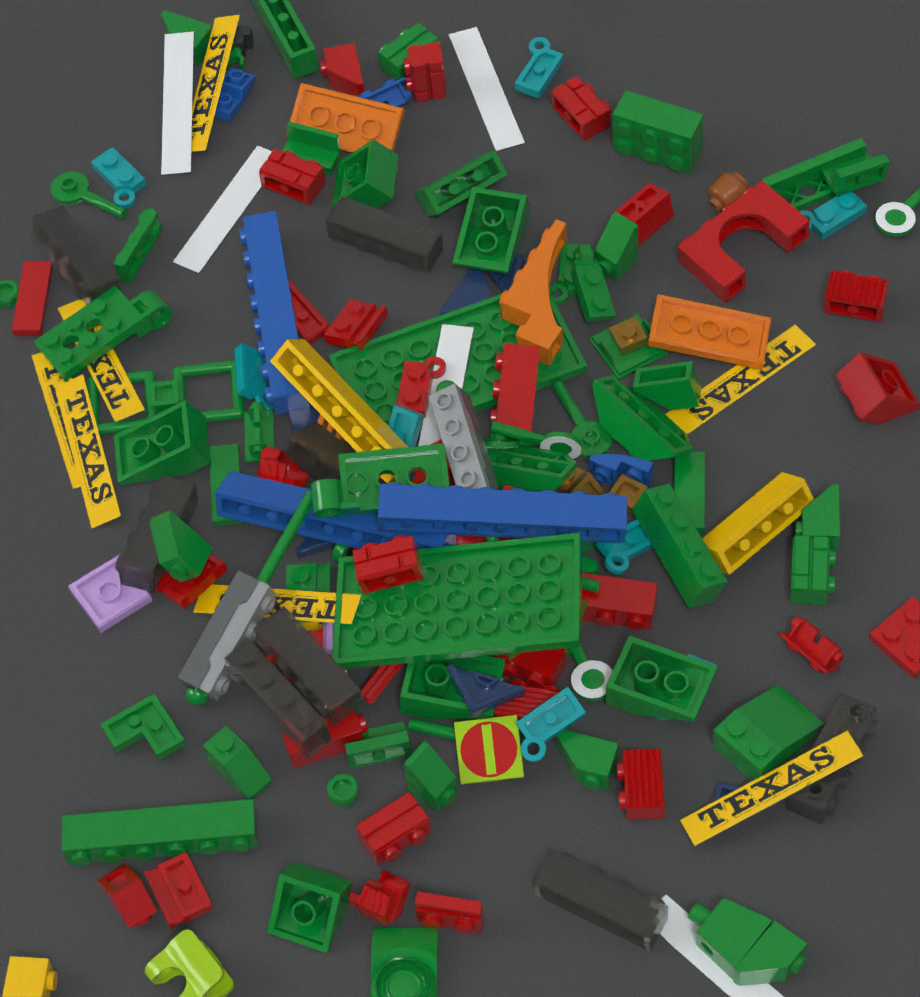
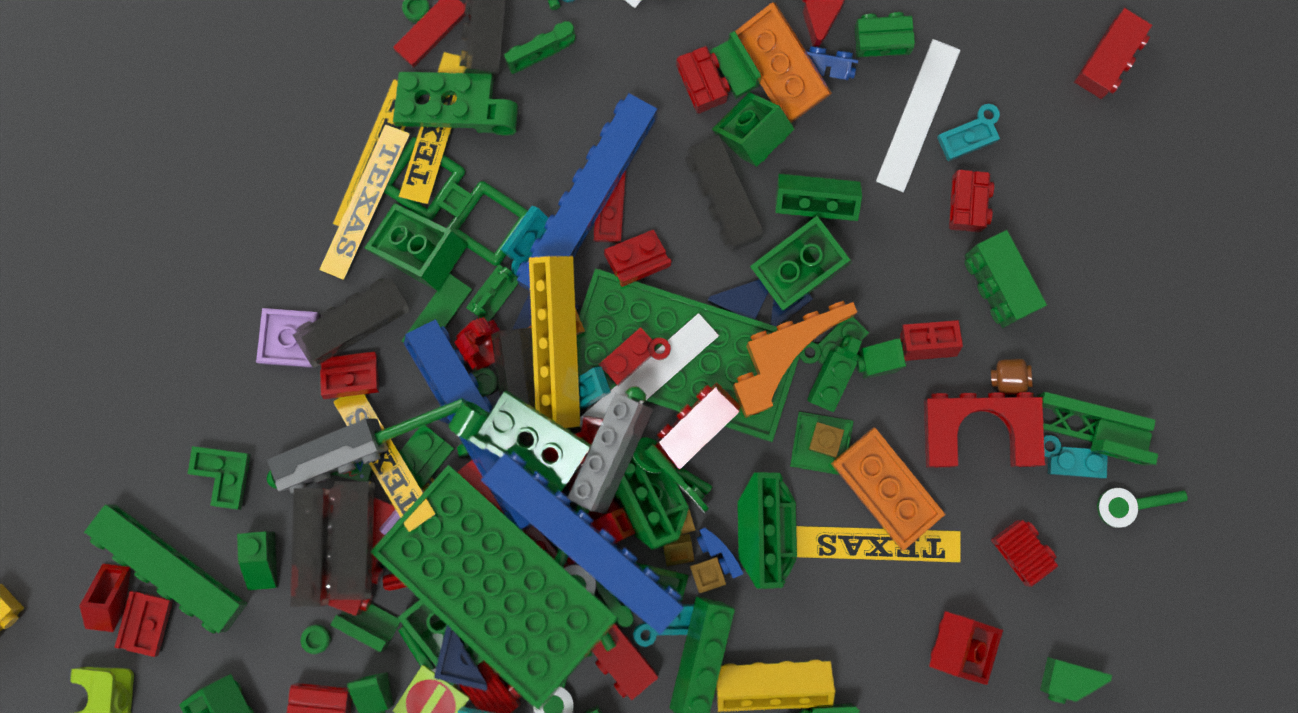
camera: 35 degrees right, 25 degrees up
(179, 546) = (345, 359): green slope -> none
(223, 213) = (632, 66): white sticker -> none
(388, 564) = (466, 513): red brick -> none
(425, 71) = (877, 69): red brick -> none
(592, 435) = (724, 497): green piece -> none
(669, 385) = (814, 513): green slope -> none
(691, 486) = (754, 613): green tile -> none

